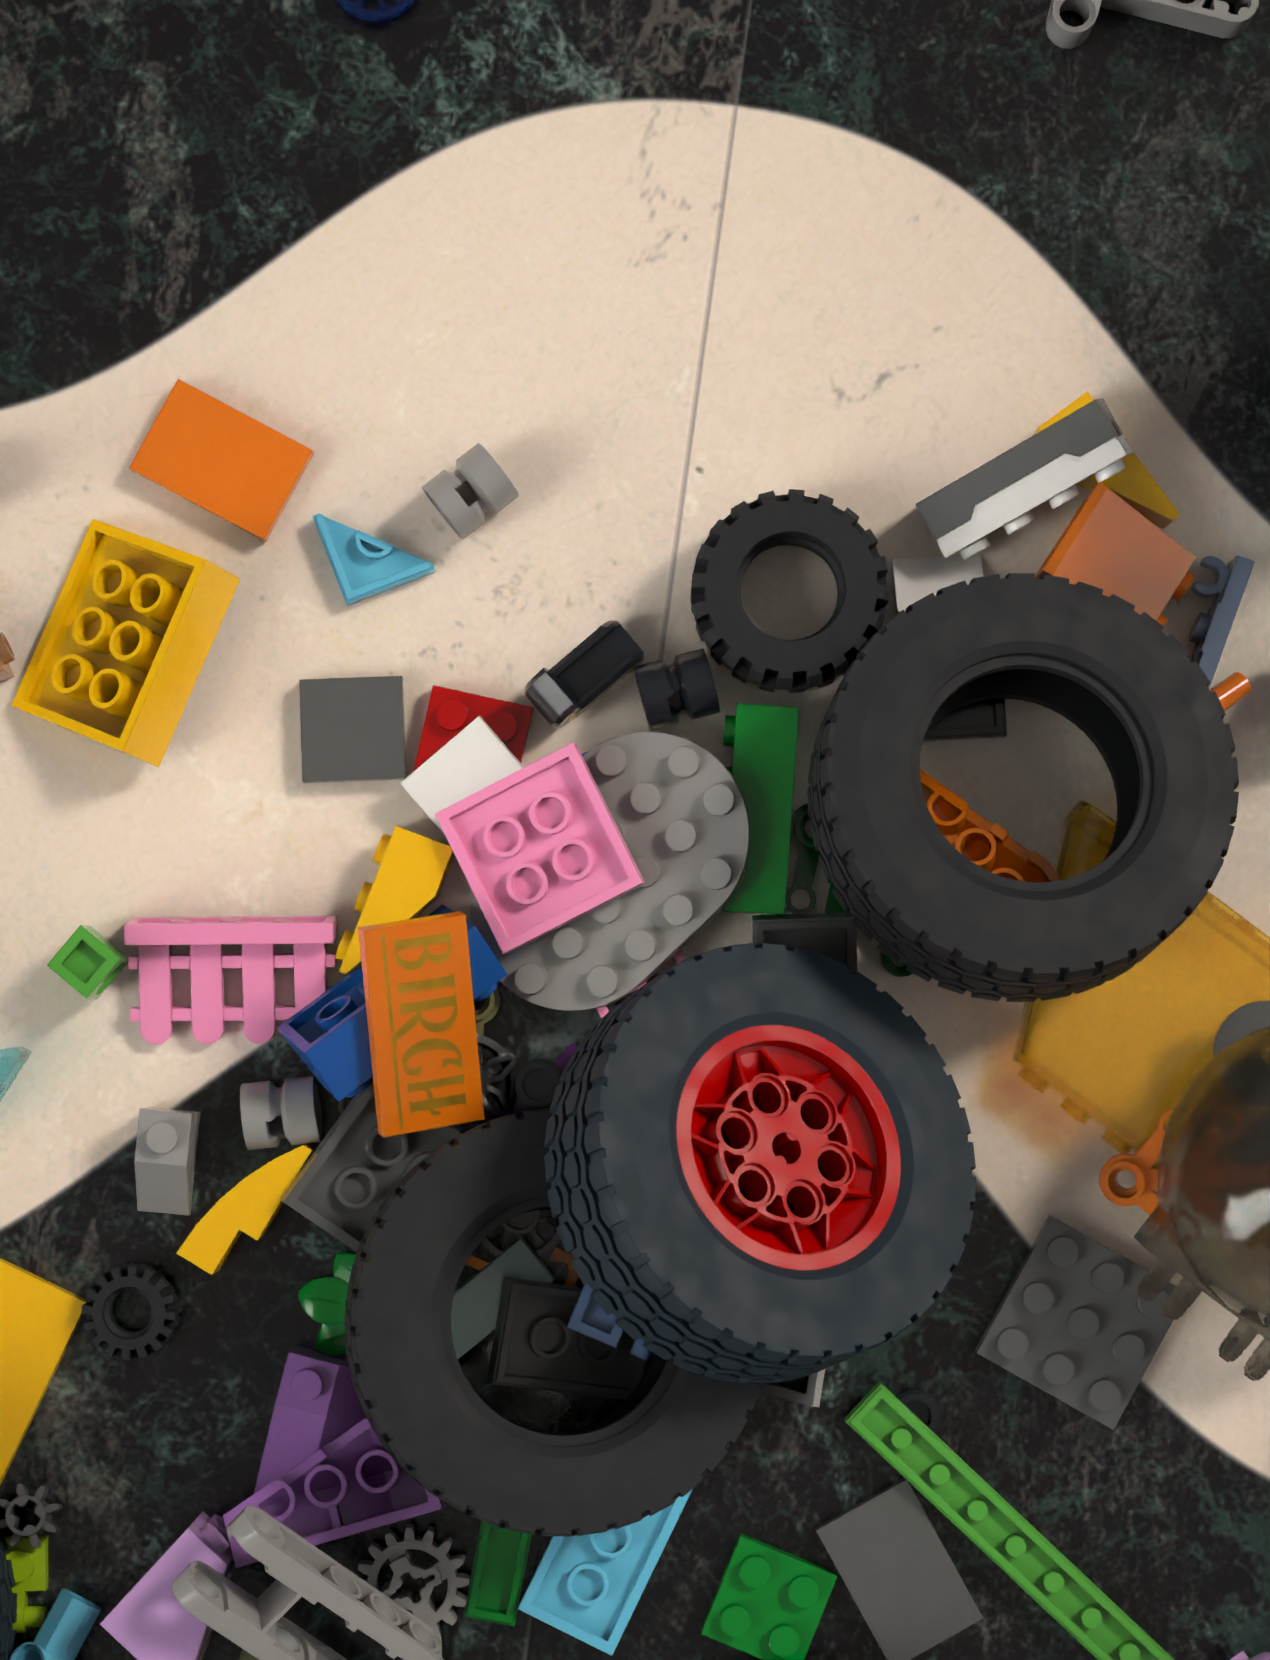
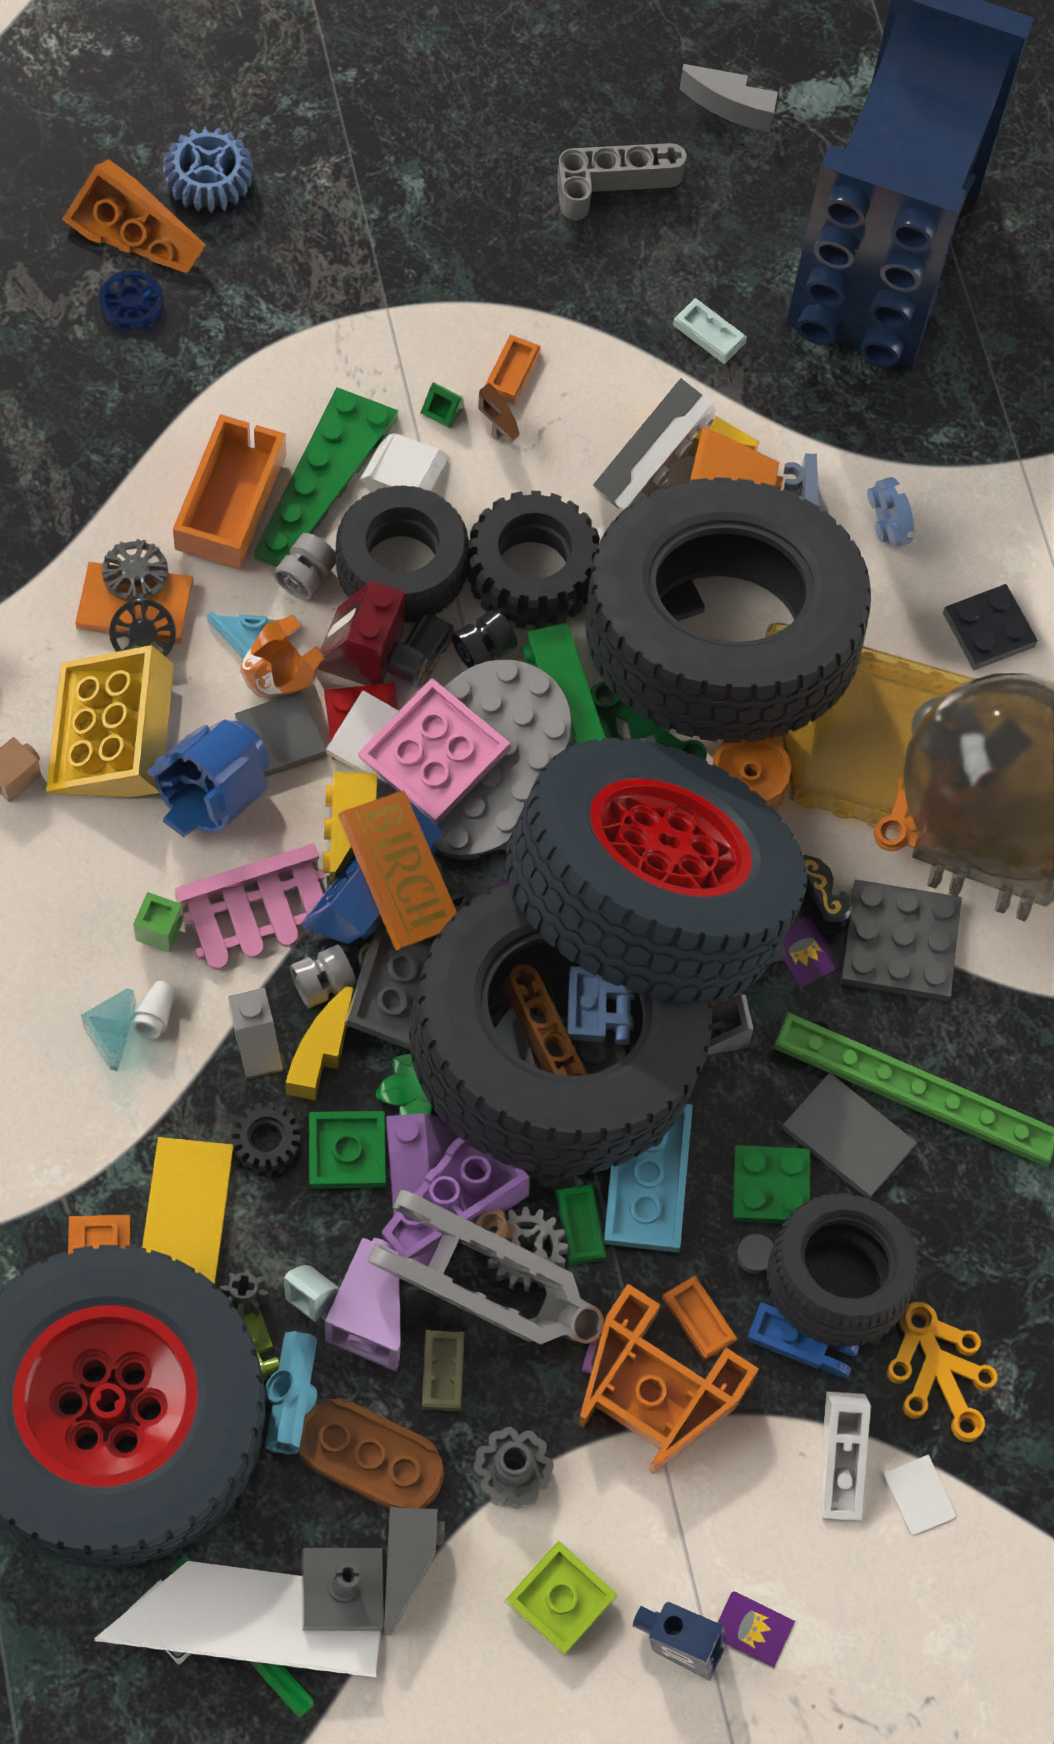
camera: 25 degrees left, 20 degrees down
(47, 1078) = (153, 1012): none -> white cone
(108, 1563) = (310, 1291): none -> light aqua slope
(213, 516) = (143, 630): none -> black wheel
(227, 778) = (211, 776): none -> blue piece
(230, 1362) = (347, 1149): none -> green plate
(233, 418) = (134, 570): none -> dark grey wheel
(379, 632) = (275, 665): none -> orange piece
(382, 1541) = (496, 1219): none -> medium nougat plate
(404, 340) = (229, 492): none -> orange piece
(508, 629) = (364, 634): none -> dark red slope
(547, 1312) = (537, 1033): none -> dark orange beam
(581, 317) = (332, 457): none -> green wing
(596, 451) = (412, 514): none -> black tyre
(664, 380) = (404, 463): none -> white slope
(754, 295) = (442, 405): none -> green slope
(829, 360) = (498, 411): none -> reddish brown slope
(876, 267) = (513, 367): none -> orange tile
(959, 1303) = (808, 952): none -> dark purple sticker
(979, 1052) = (759, 765): none -> orange wheel
(995, 1216) = (828, 909): none -> black animal
(1183, 300) = (709, 331): none -> light aqua plate

